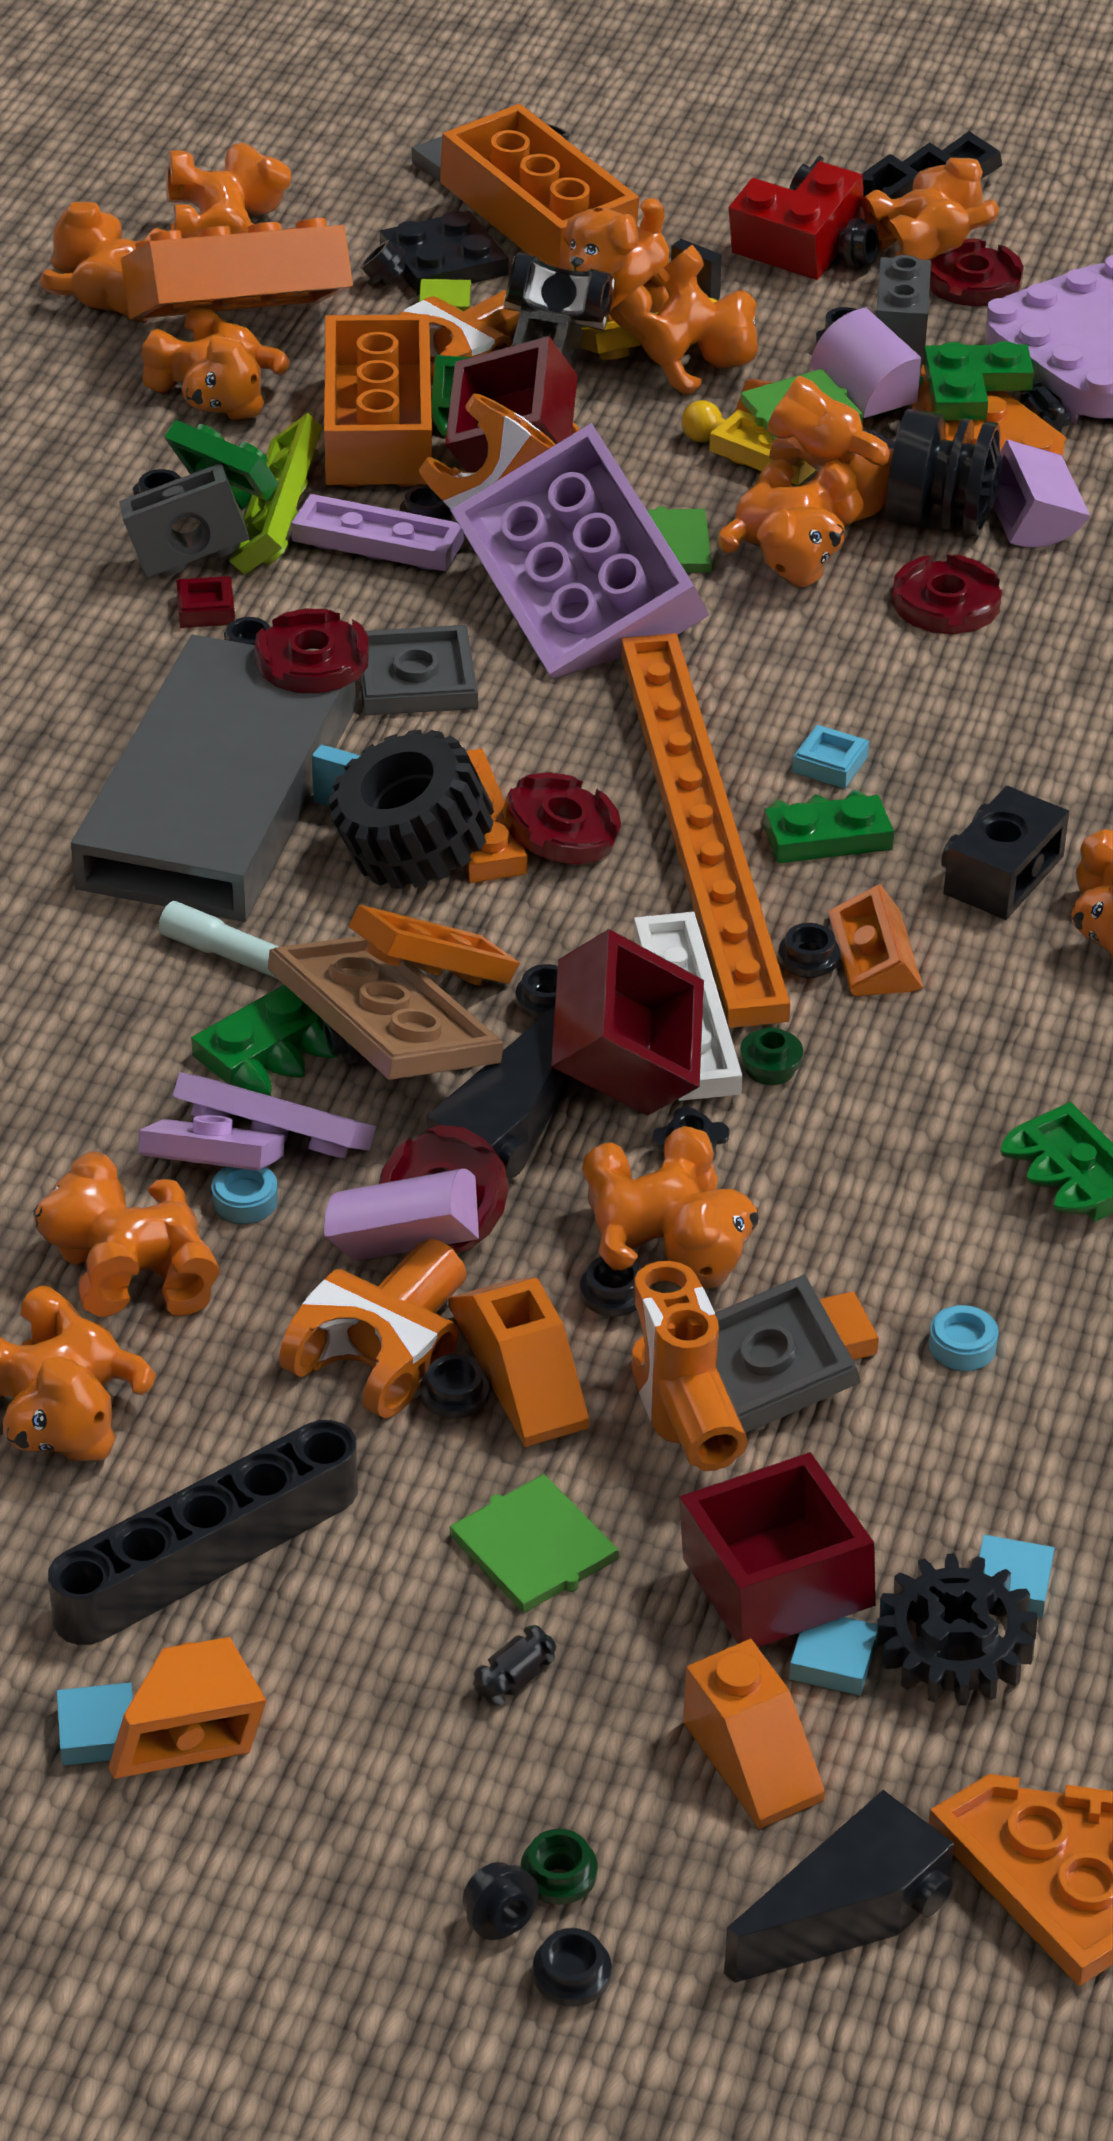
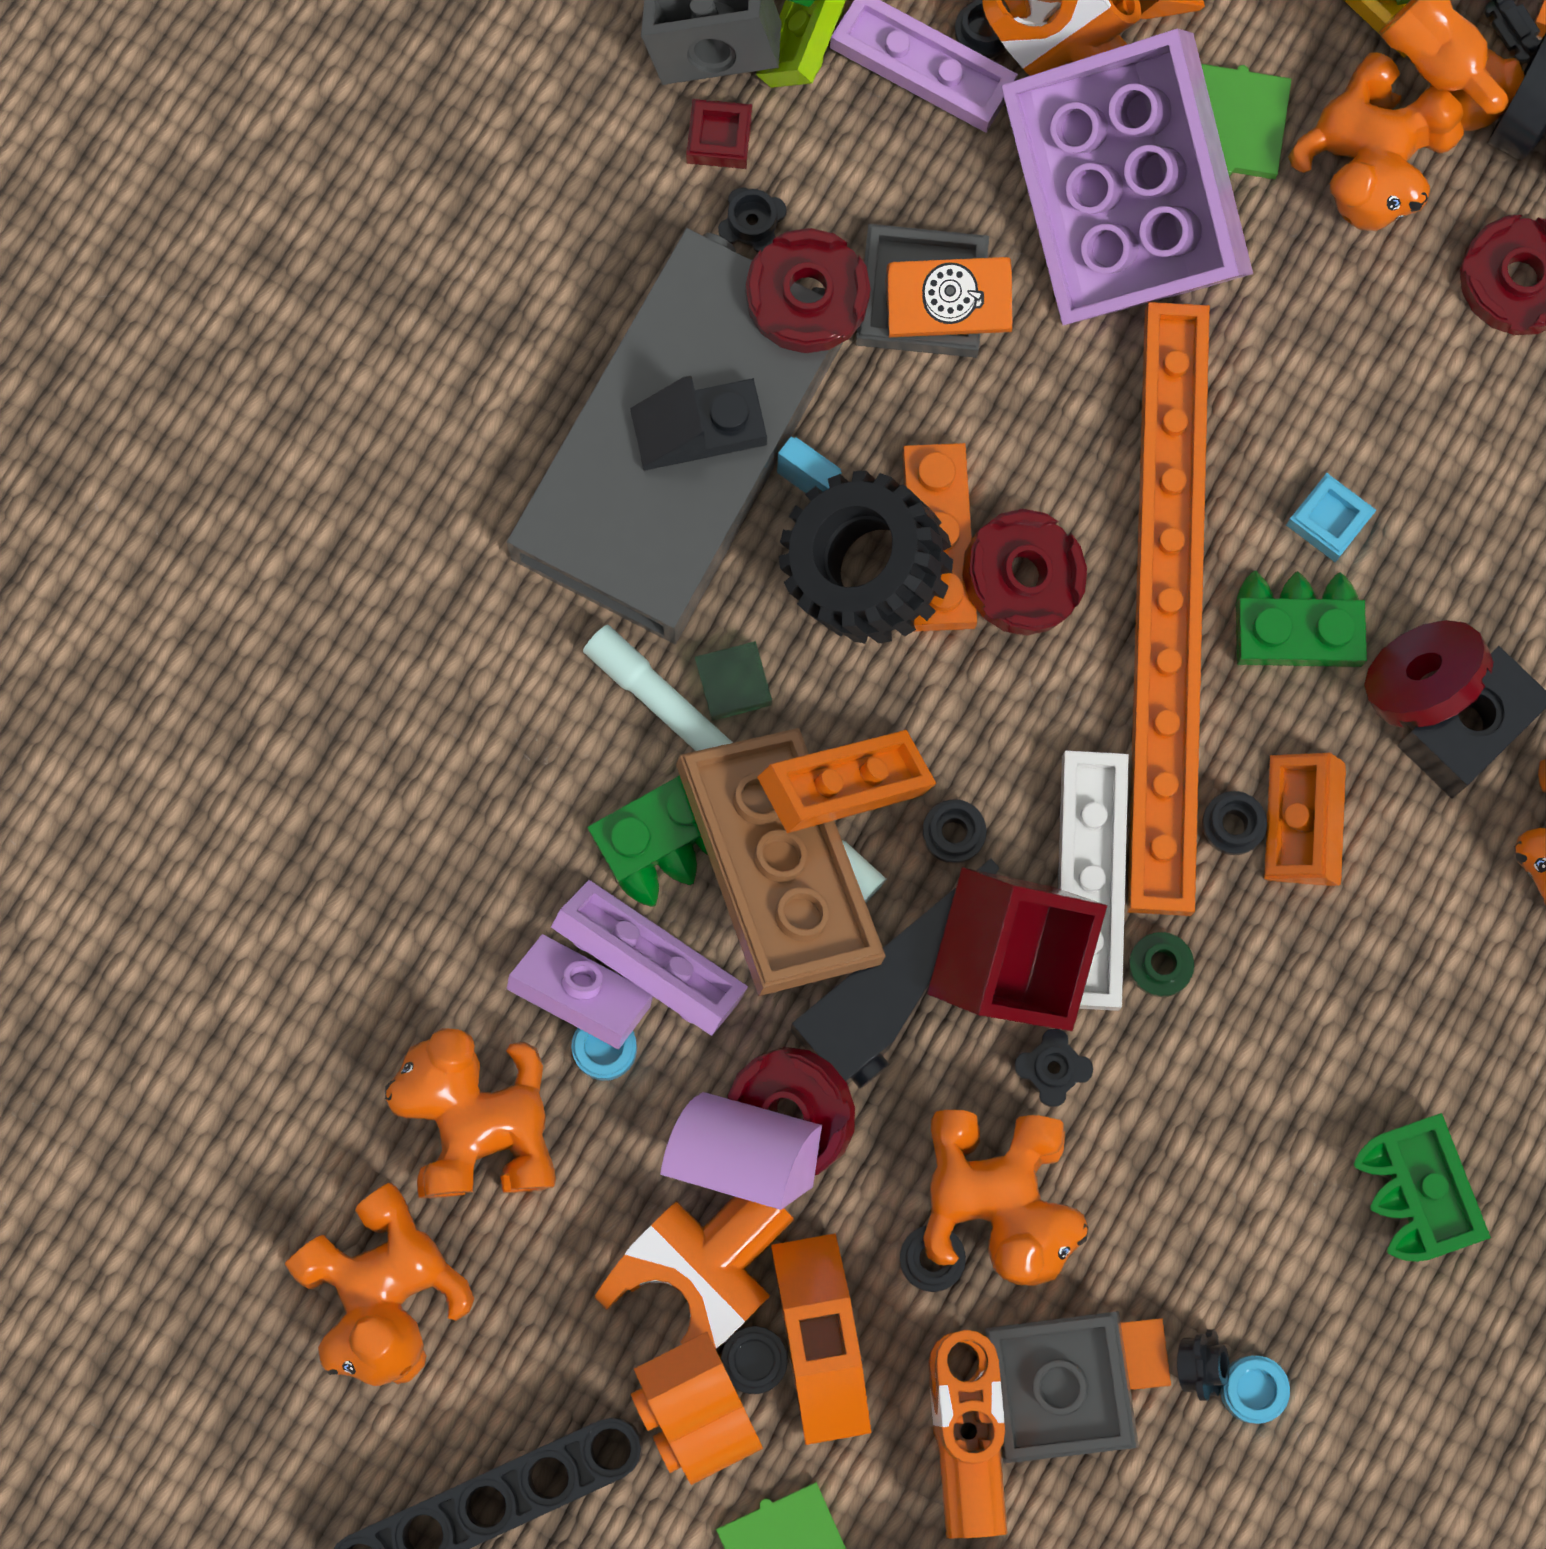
camera: 10 degrees right, 35 degrees up
(225, 738) = (697, 424): none -> black slope
(305, 923) = (733, 681): none -> clear green tile
(406, 1401) = (696, 1409): none -> orange brick
(440, 650) = (949, 297): none -> orange slope
(904, 1314) = (1203, 1364): none -> black plate
(951, 815) = (1444, 646): none -> dark red tile

